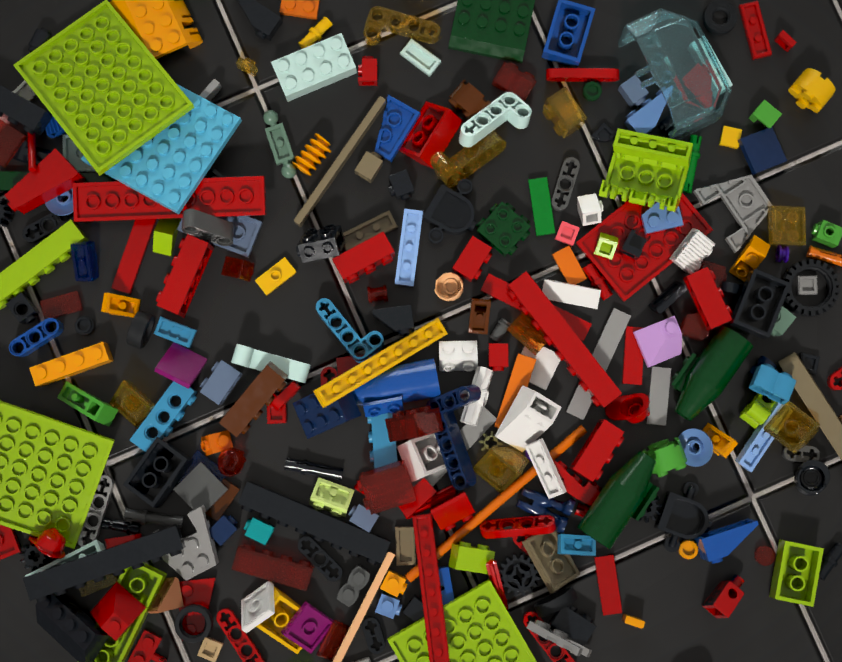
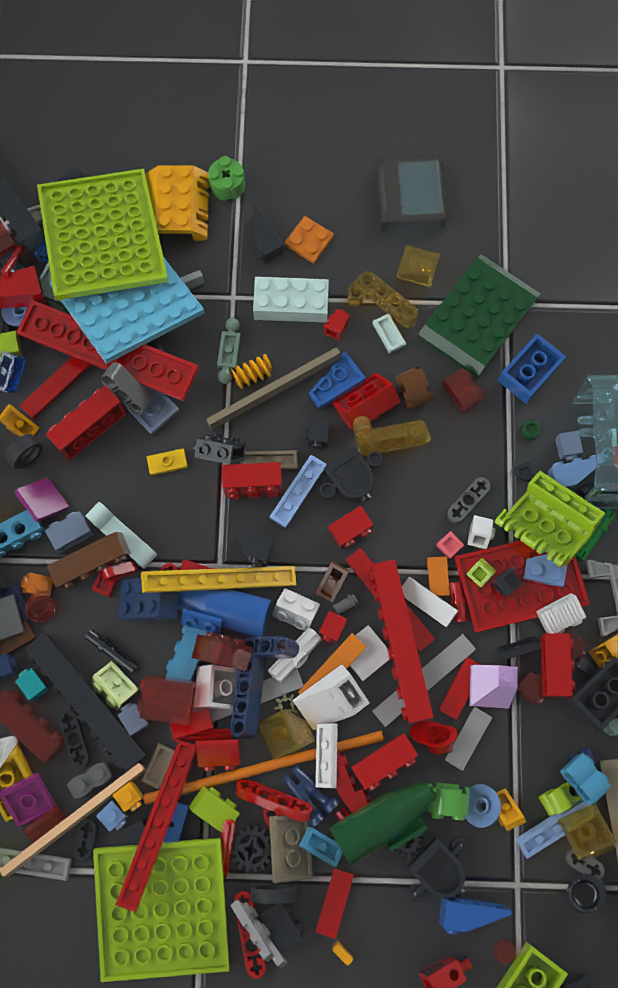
camera: 30 degrees right, 10 degrees down
(165, 236) = (88, 382): lime slope -> none
(175, 332) = (53, 469): dark azure plate -> none
(238, 268) = (137, 440): clear red bracket -> none
(247, 65) = (234, 273): clear yellow plate -> none
(315, 33) = (308, 272): yellow pin -> none
(345, 328) = (203, 536): dark azure beam -> none
(369, 166) = (297, 404): dark tan brick -> none
(377, 294) = (249, 519): clear red bush -> none
(449, 286) = (317, 542): light nougat hair -> none
(503, 228) = (393, 513): dark green brick -> none
(504, 108) = (427, 409): light aqua beam -> none
(527, 334) = (368, 618): clear orange plate -> none
(541, 206) = (437, 510): green tile -> none
(564, 113) = (496, 435): clear yellow brick -> none
(582, 74) = (528, 411): red beam -> none
(688, 549) = (430, 906): light orange tile -> none
(707, 376) = (524, 741): dark green piece -> none

